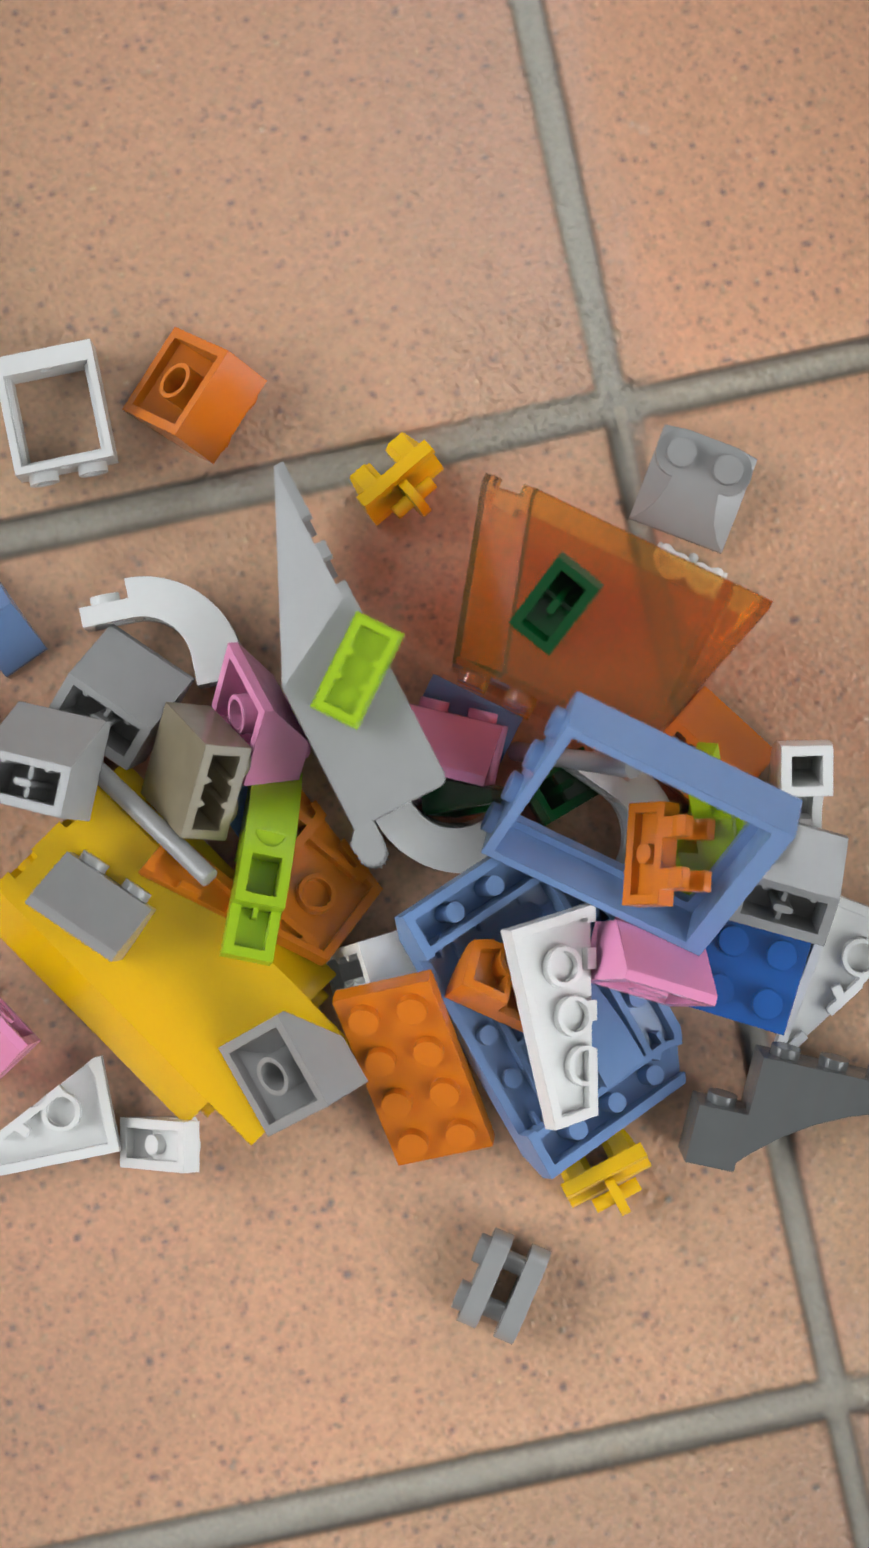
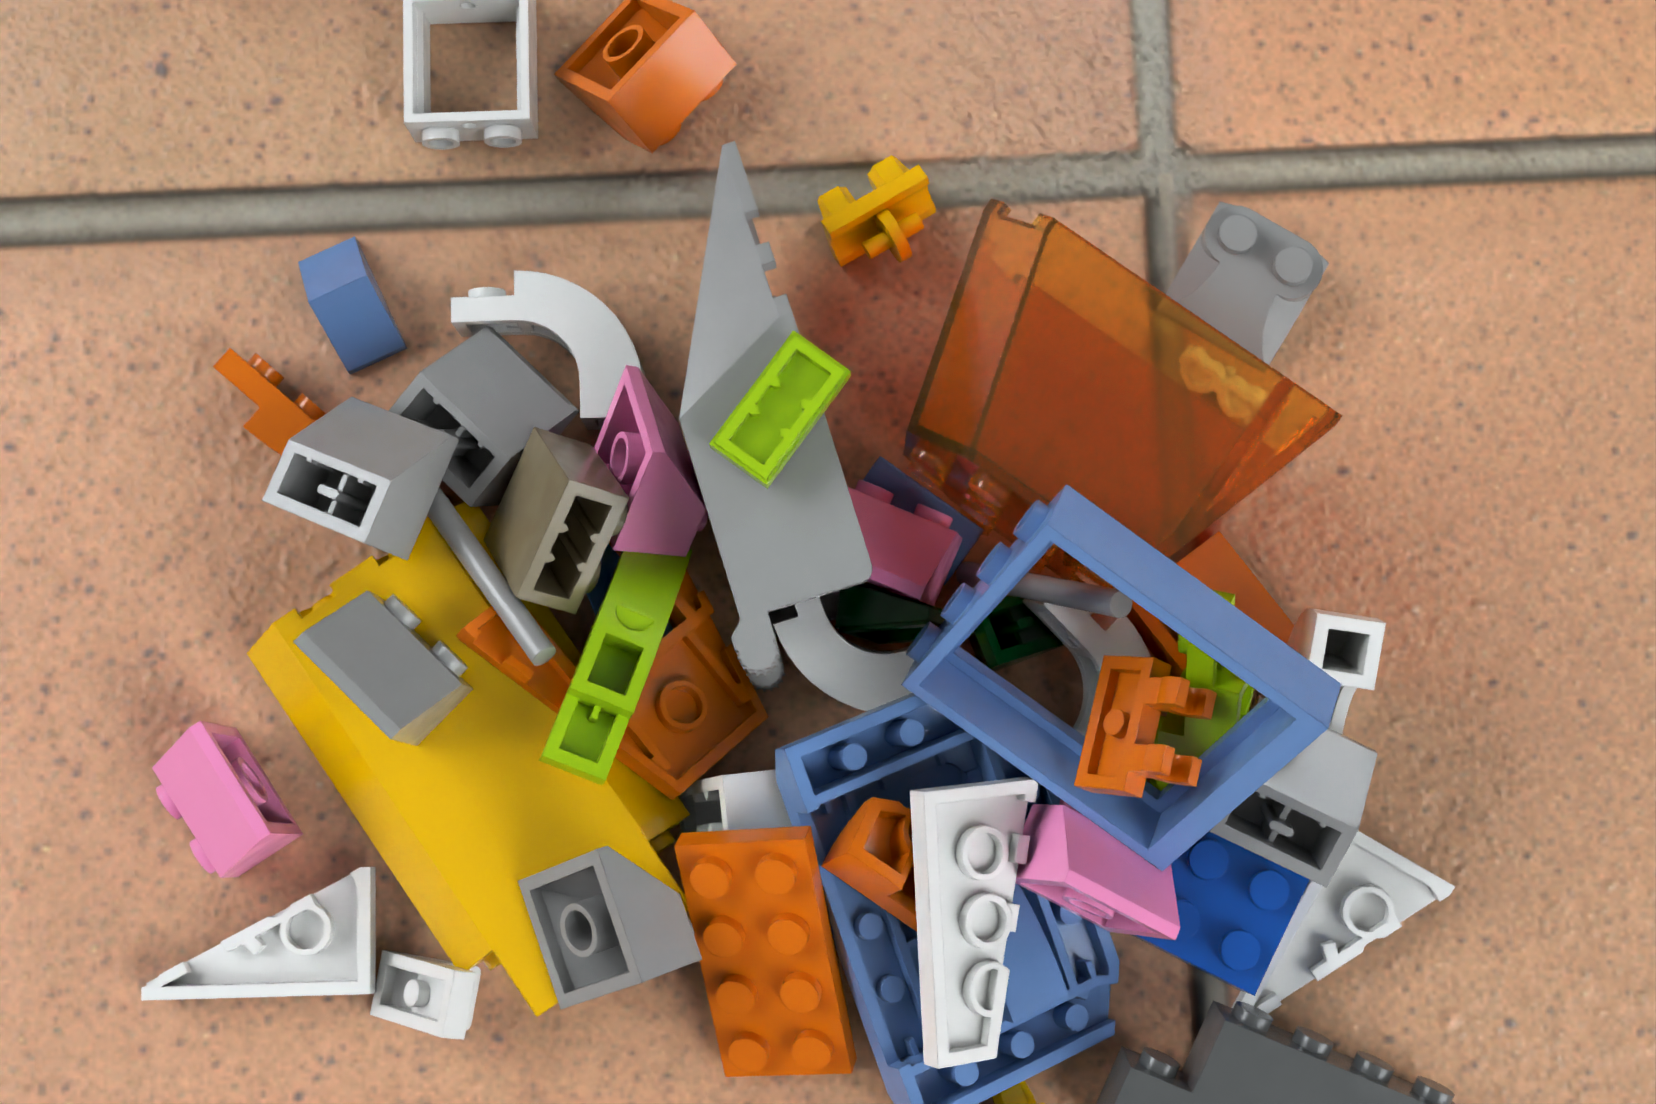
camera: 15 degrees right, 5 degrees down
(556, 603) = (1060, 363): dark green slope -> none

